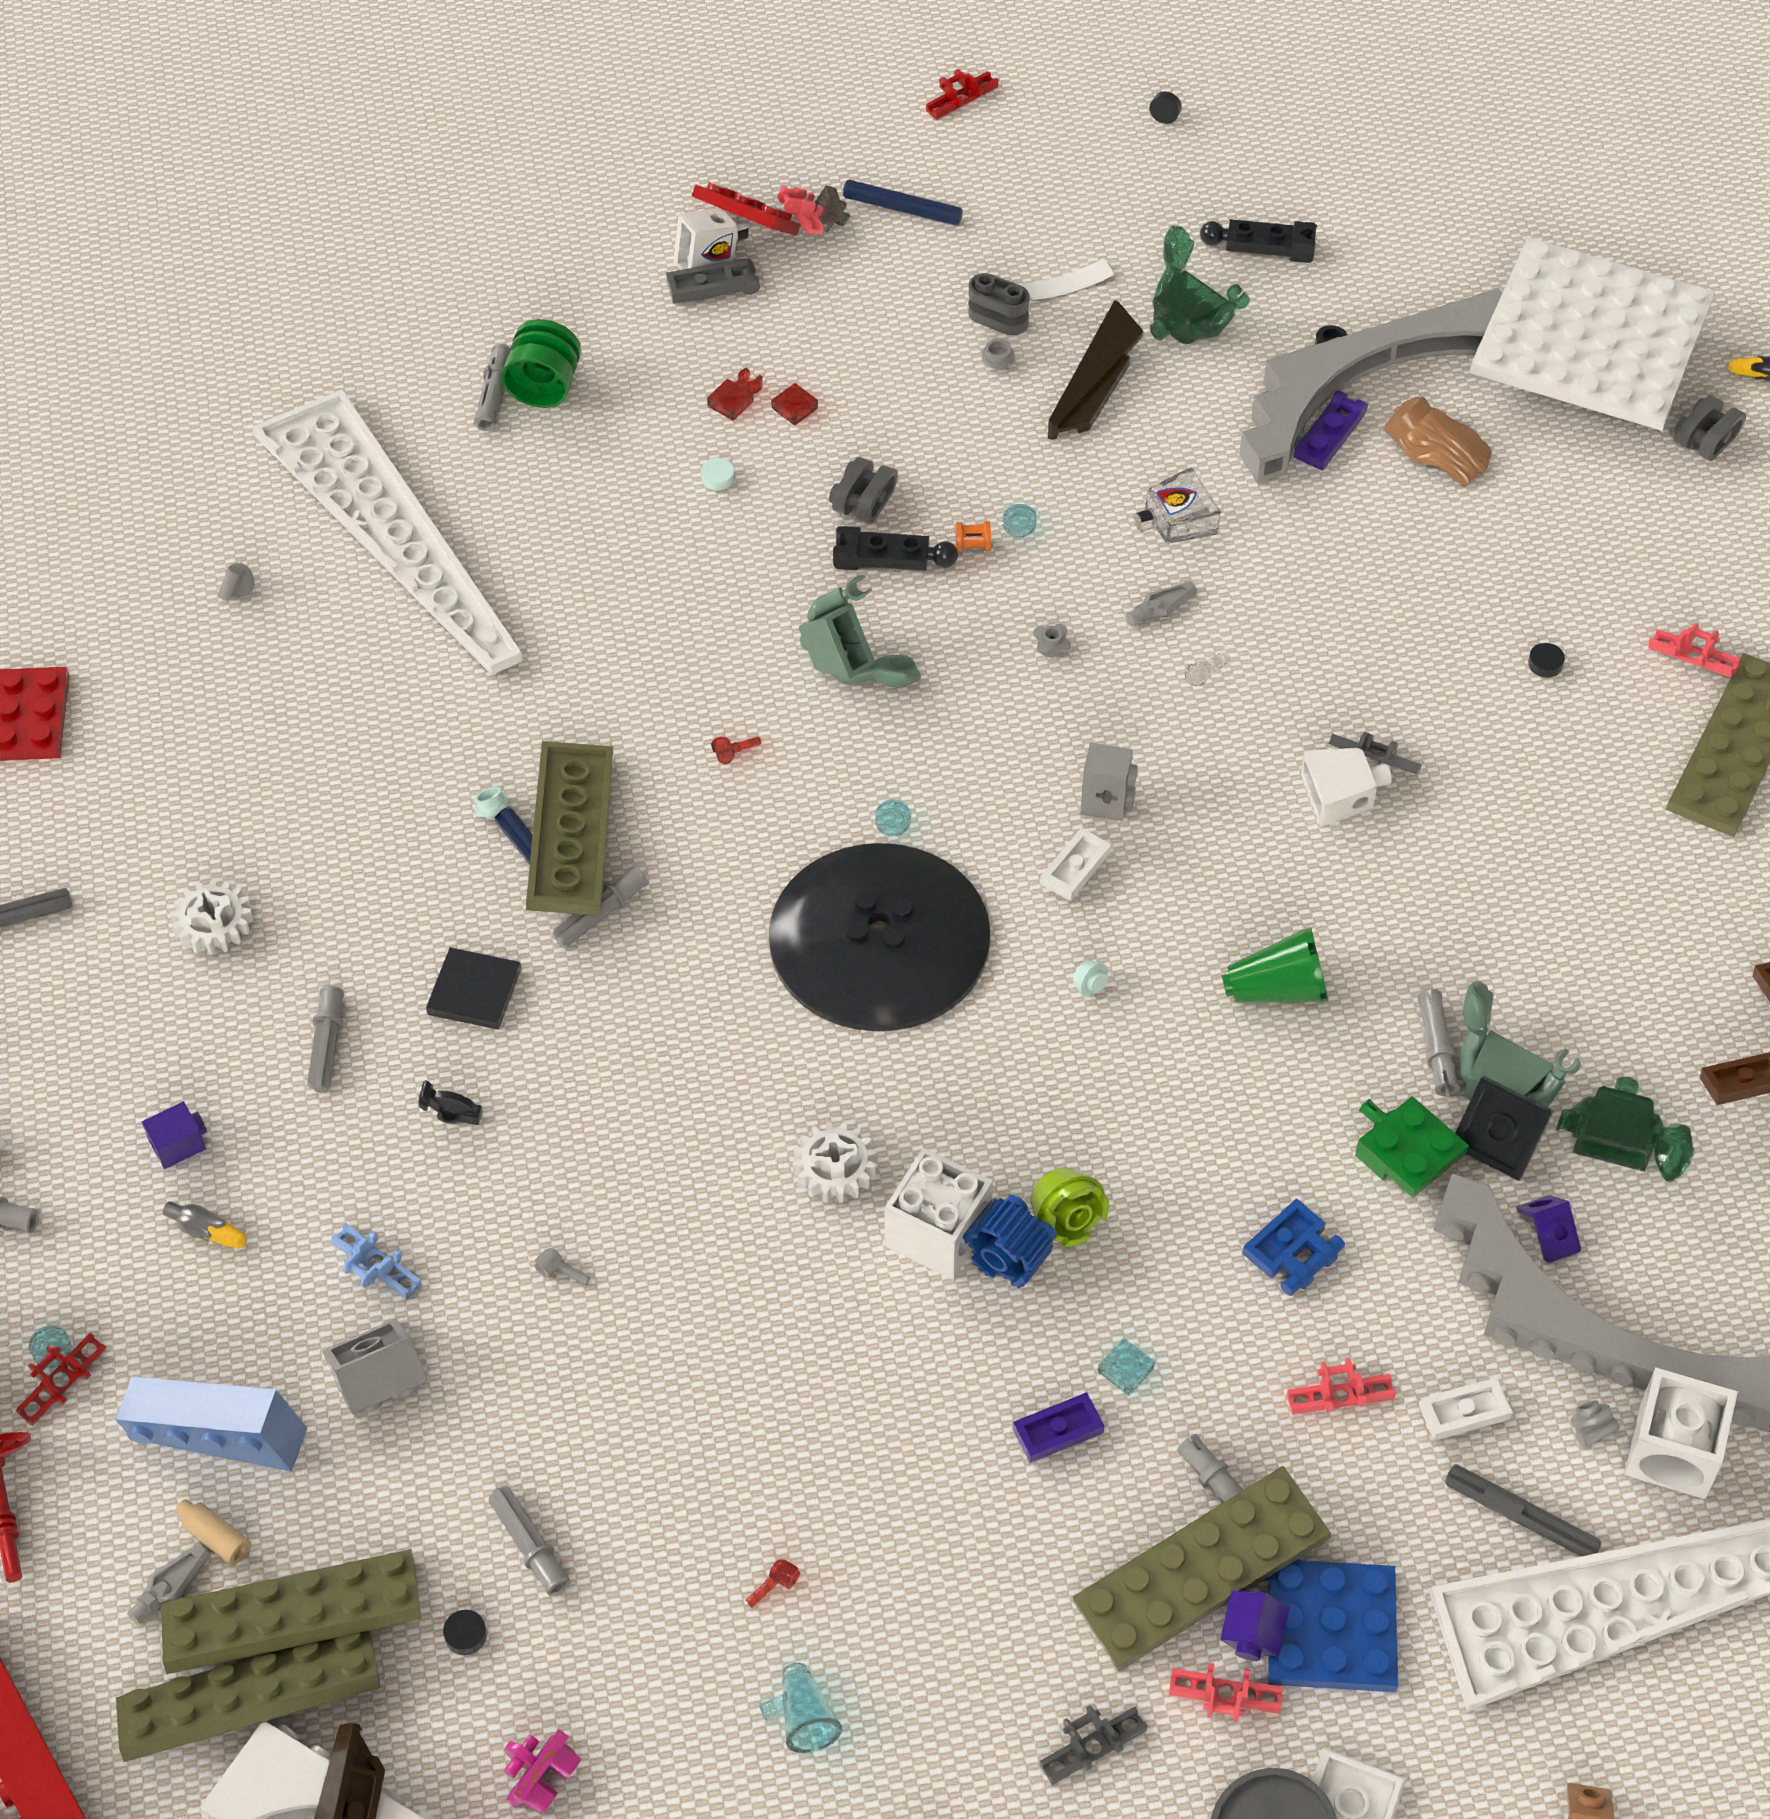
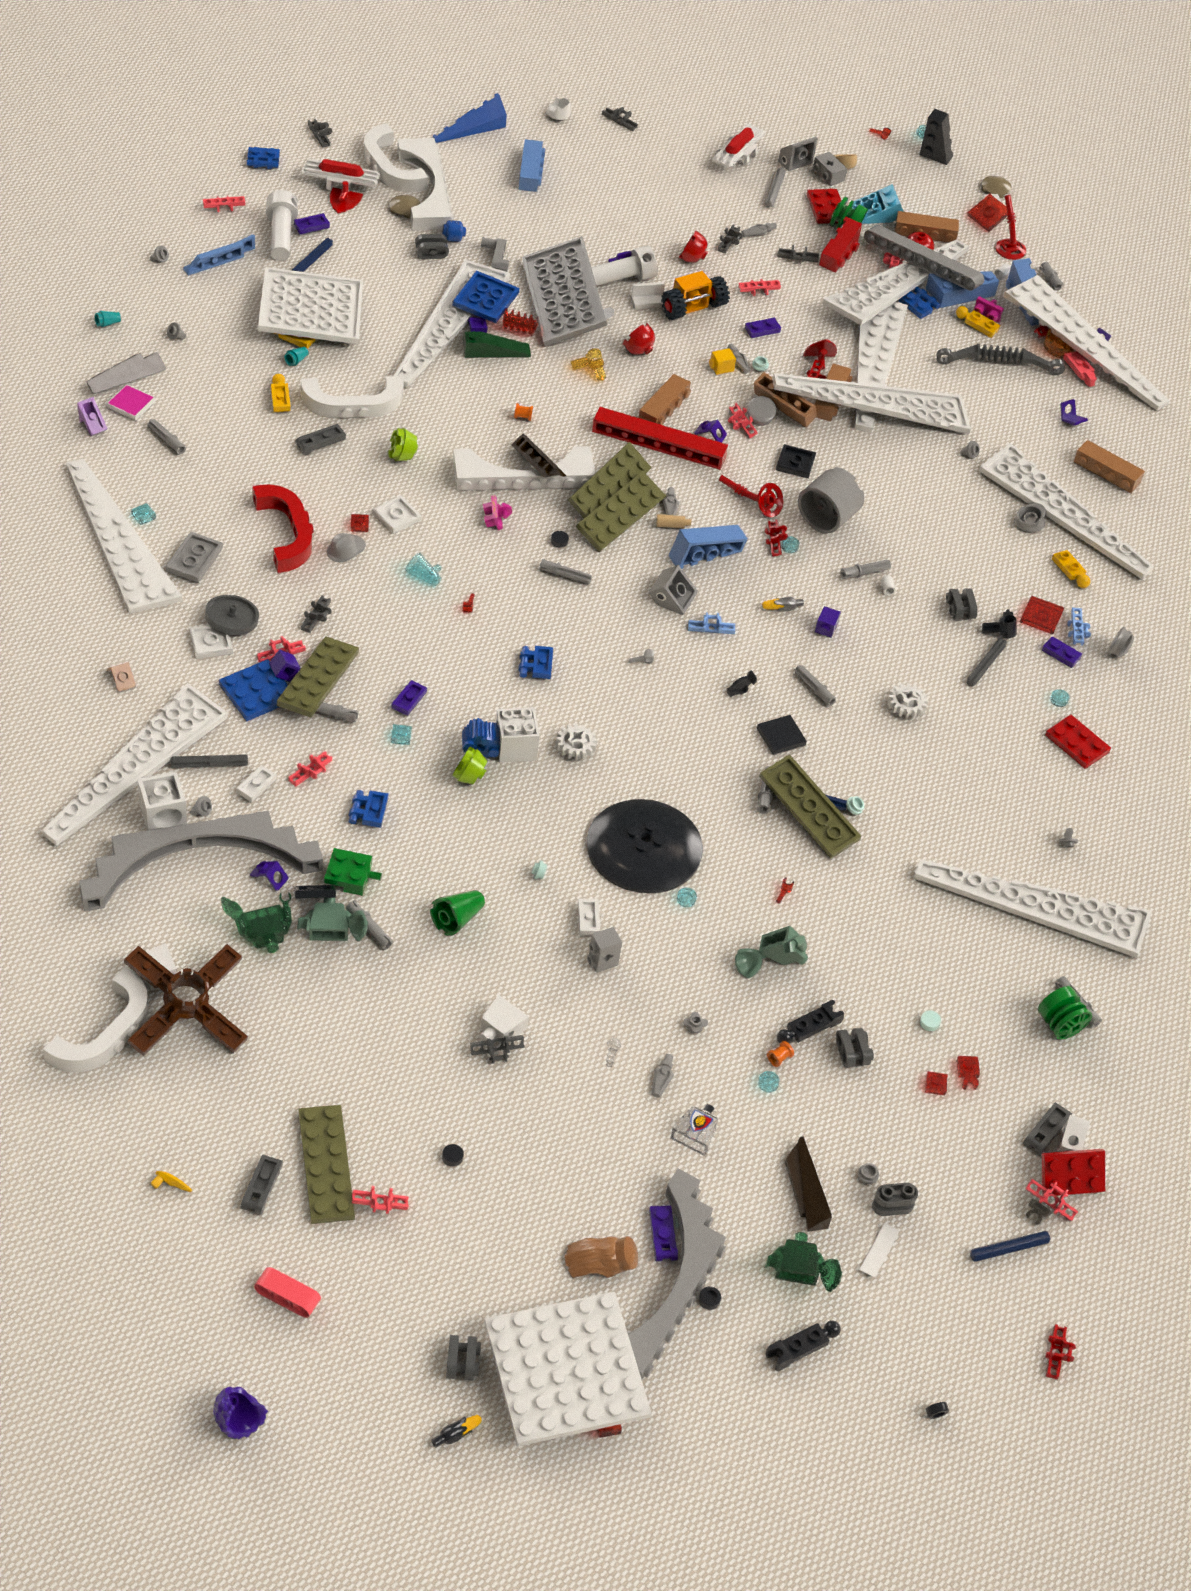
camera: 135 degrees right, 5 degrees down
(754, 1358) = (542, 662): none -> blue plate

